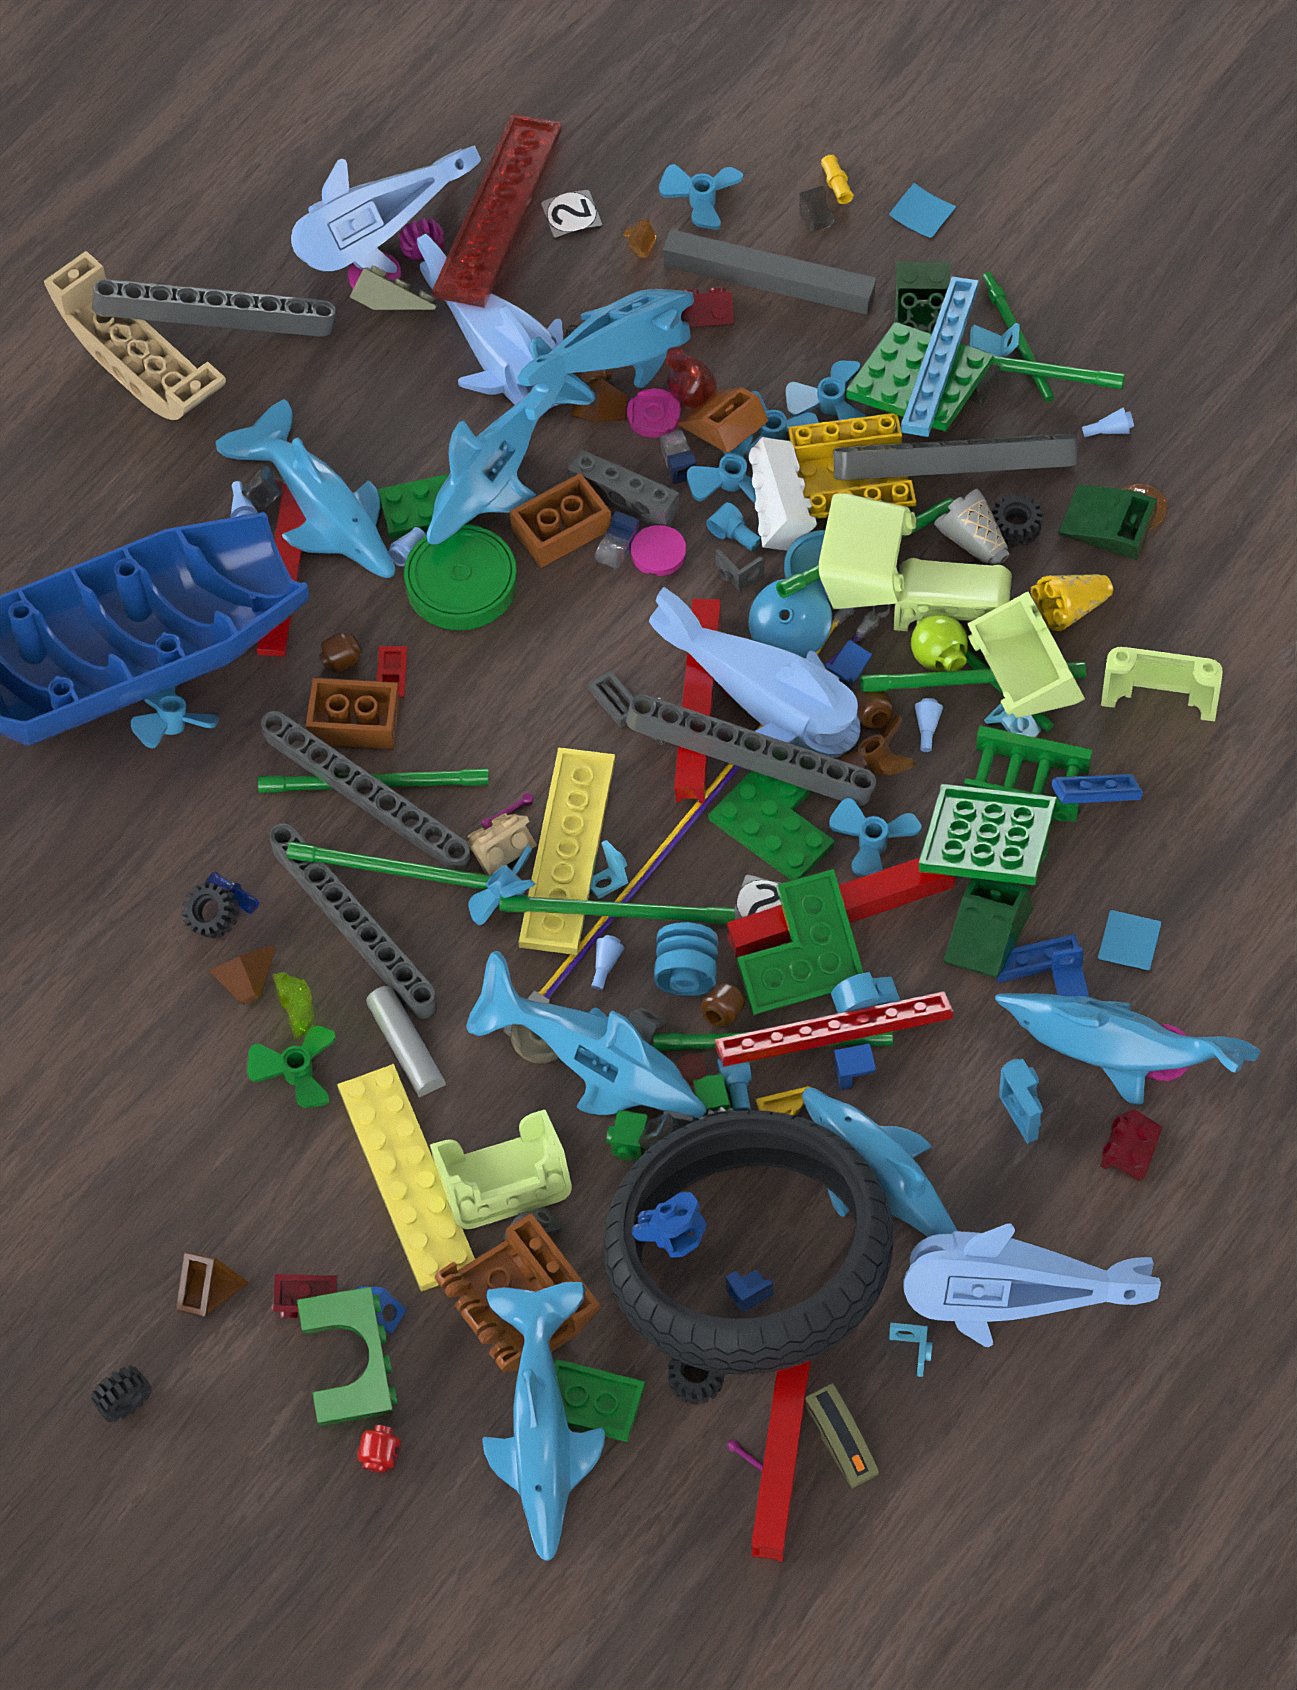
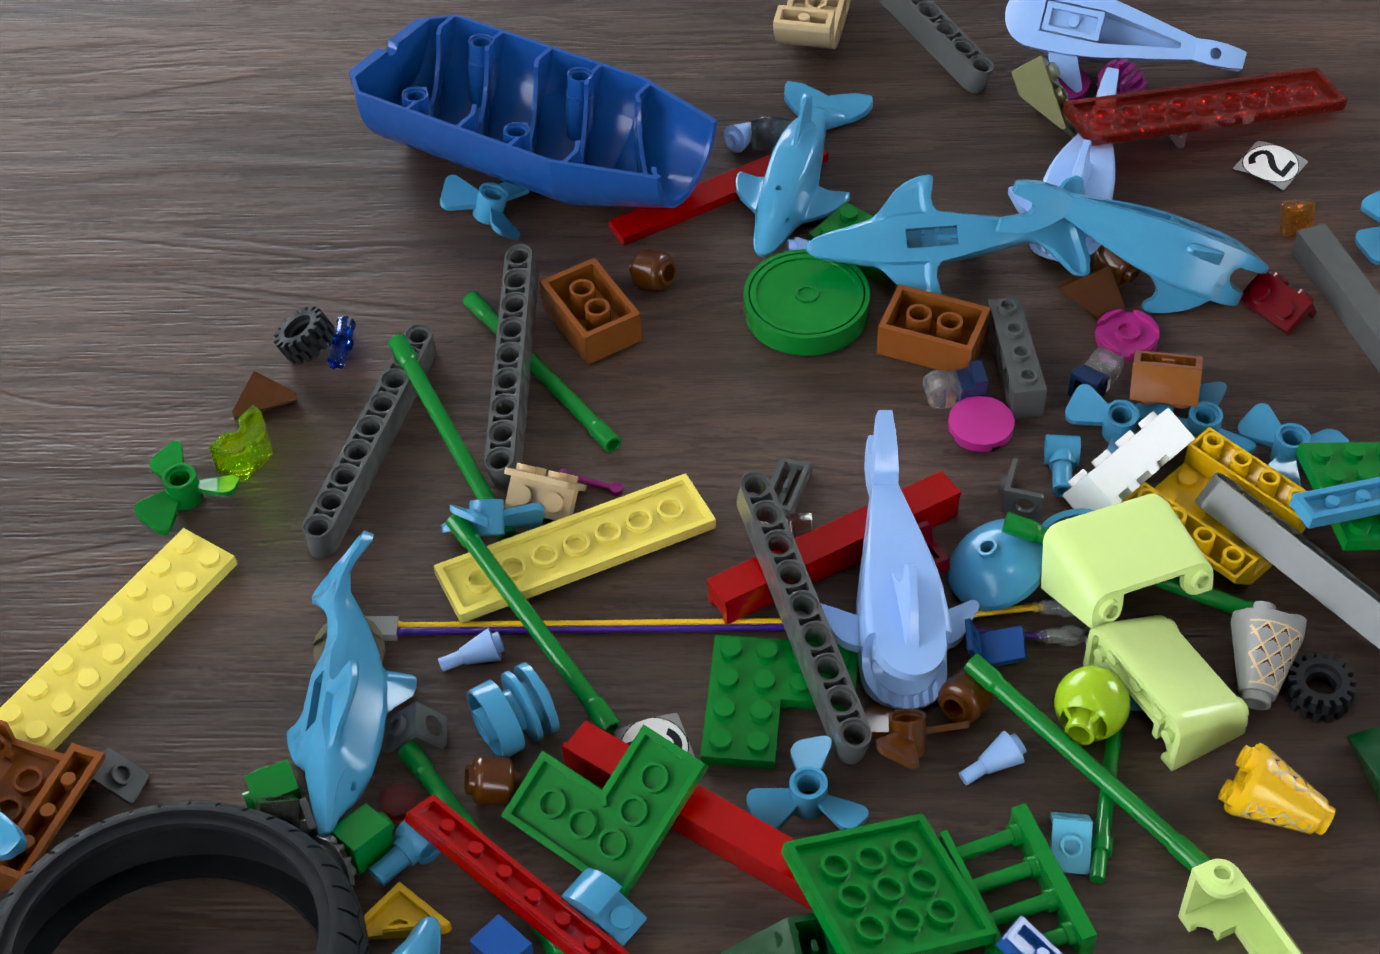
camera: 55 degrees right, 10 degrees down
(393, 666) = (670, 318): red slope -> none
(404, 1041) = (265, 554): light grey brick -> none
(505, 1176) = (151, 712): yellowish green windscreen -> none
(615, 872) = (585, 595): medium azure bracket -> none
(671, 1224) = (107, 872): blue hinge -> none
(689, 378) = (1186, 330): clear red piece -> none
(1024, 658) = (1146, 793): yellowish green windscreen -> none

